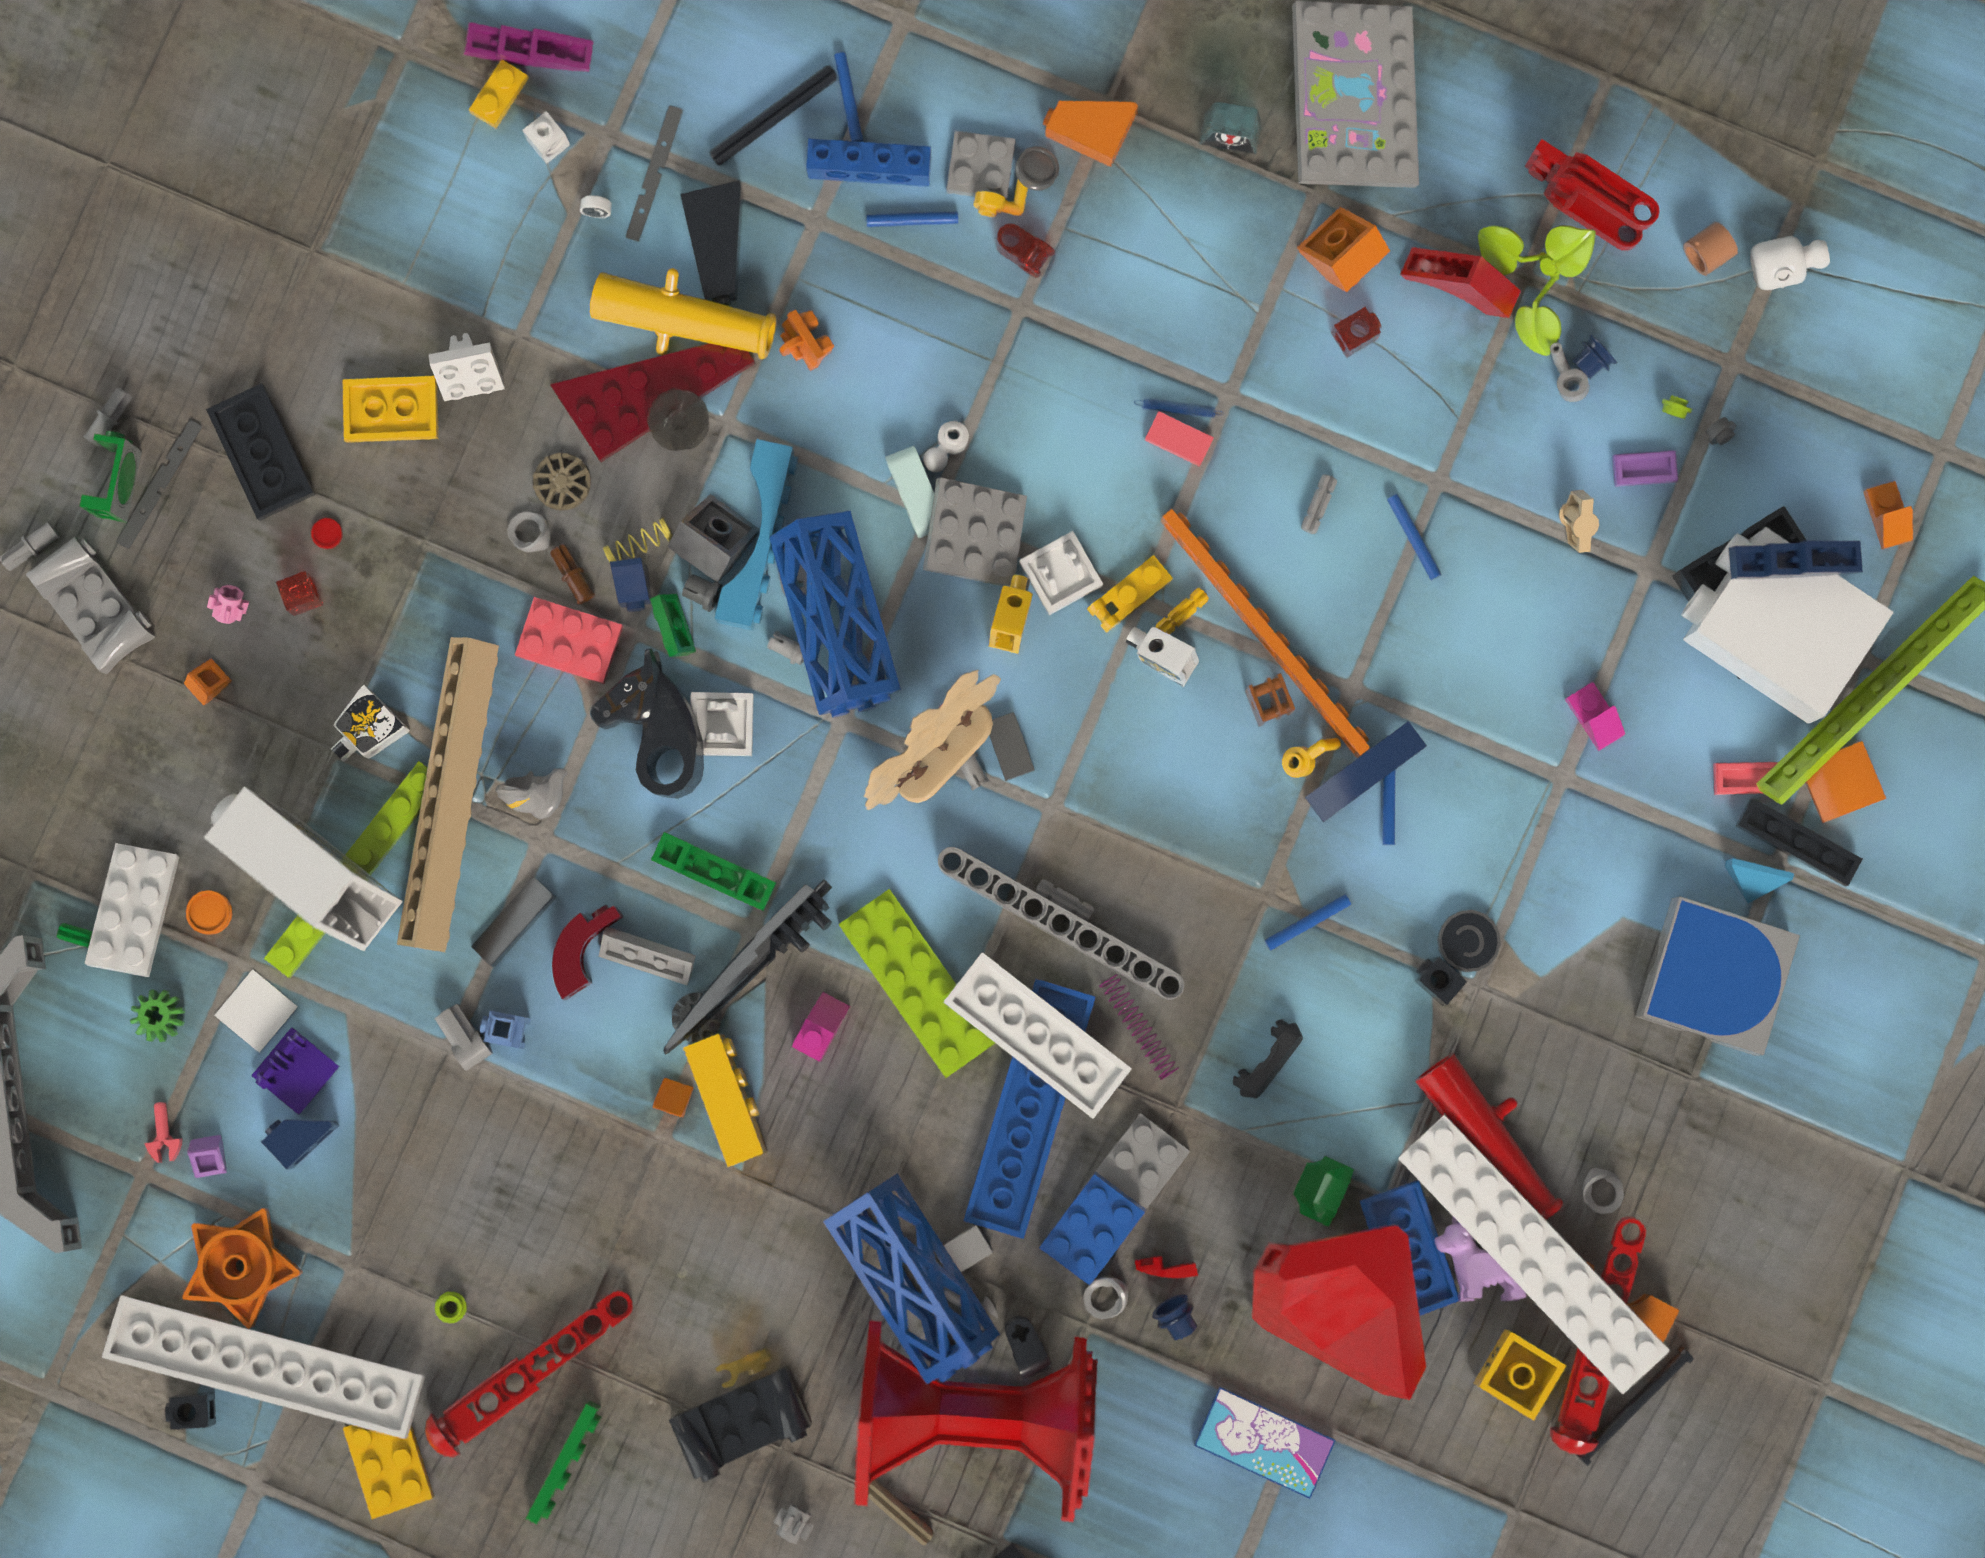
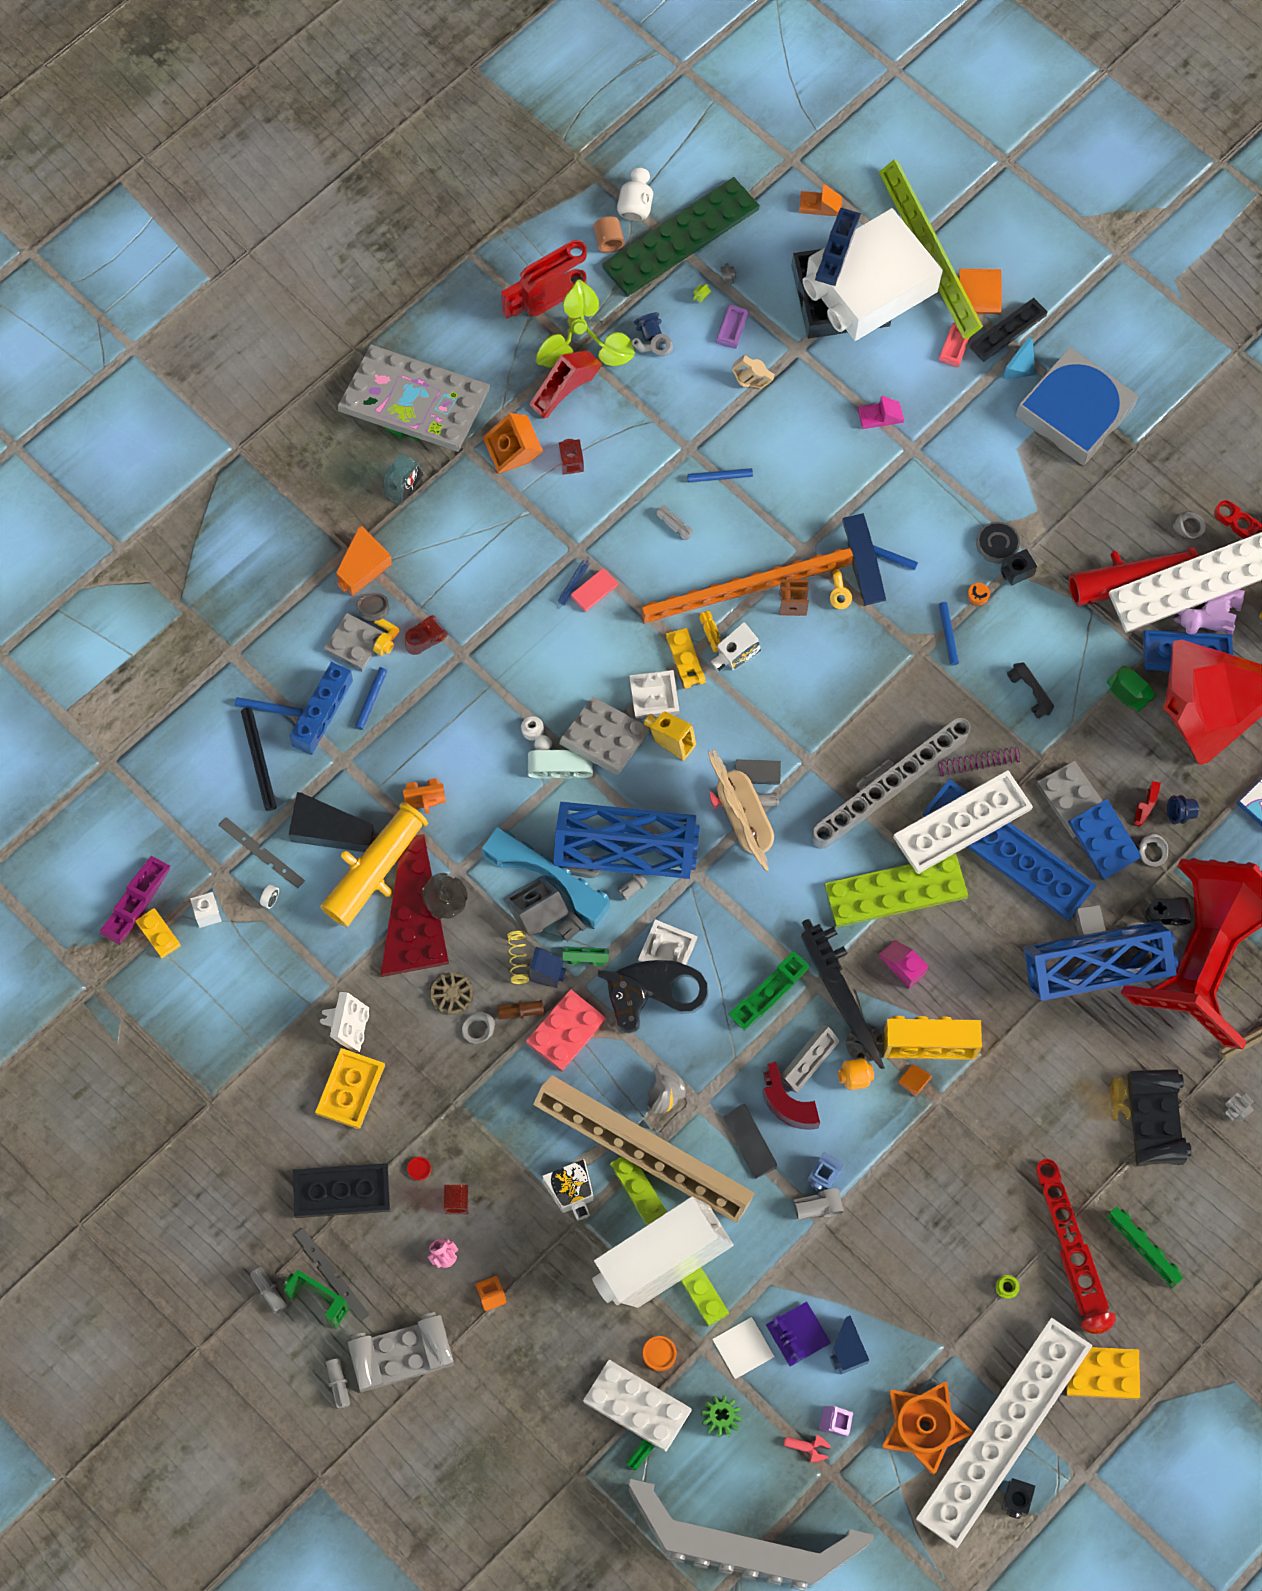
camera: 70 degrees left, 15 degrees down
(647, 1021) = (856, 1074): none -> light orange head
(1381, 941) = (978, 594): none -> orange tile
(1755, 347) = (680, 236): none -> dark green plate

